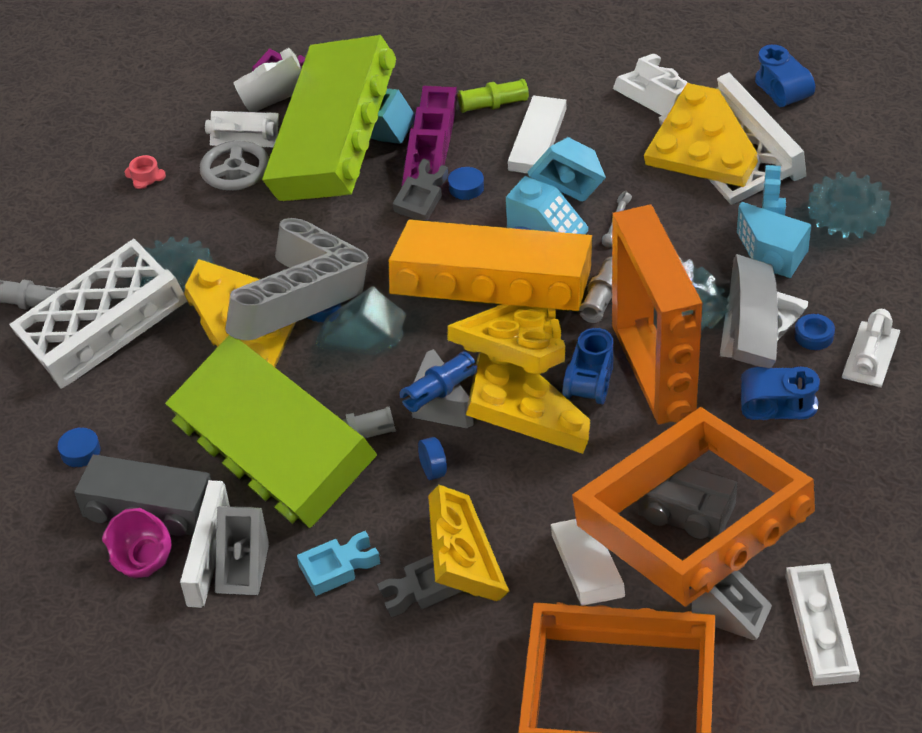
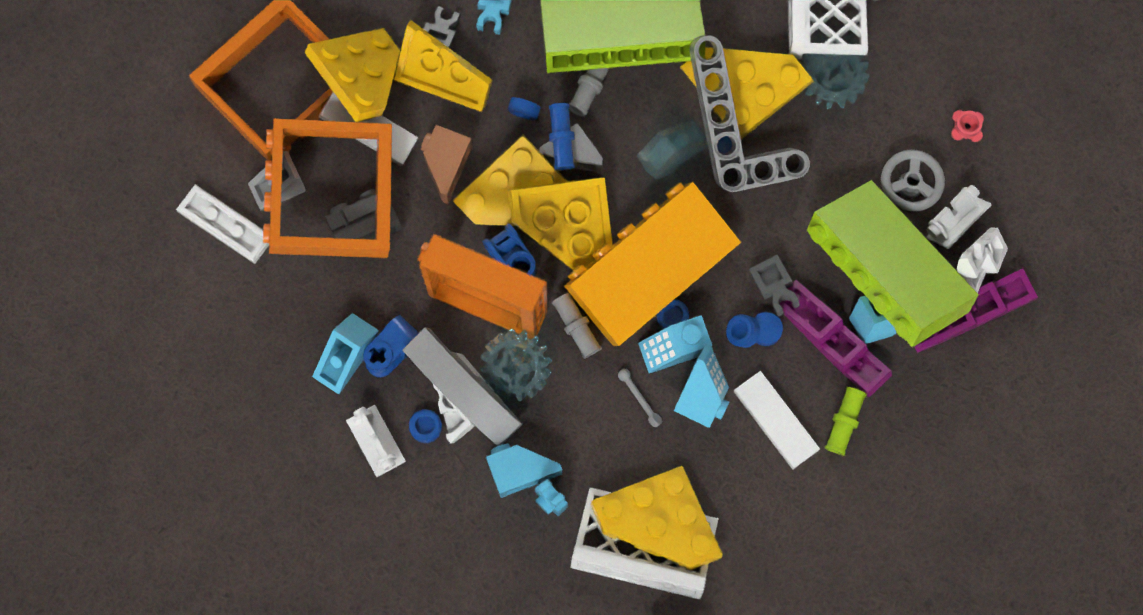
camera: 125 degrees right, 30 degrees up
(485, 188) = (743, 331): none -> blue tile
(540, 590) = (358, 70): none -> yellow plate
(550, 477) = (445, 158): none -> nougat slope
(651, 85) = (757, 549): white slope -> none
(823, 419) = (344, 352): none -> medium azure slope
(849, 205) = (523, 555): clear light blue gear -> none

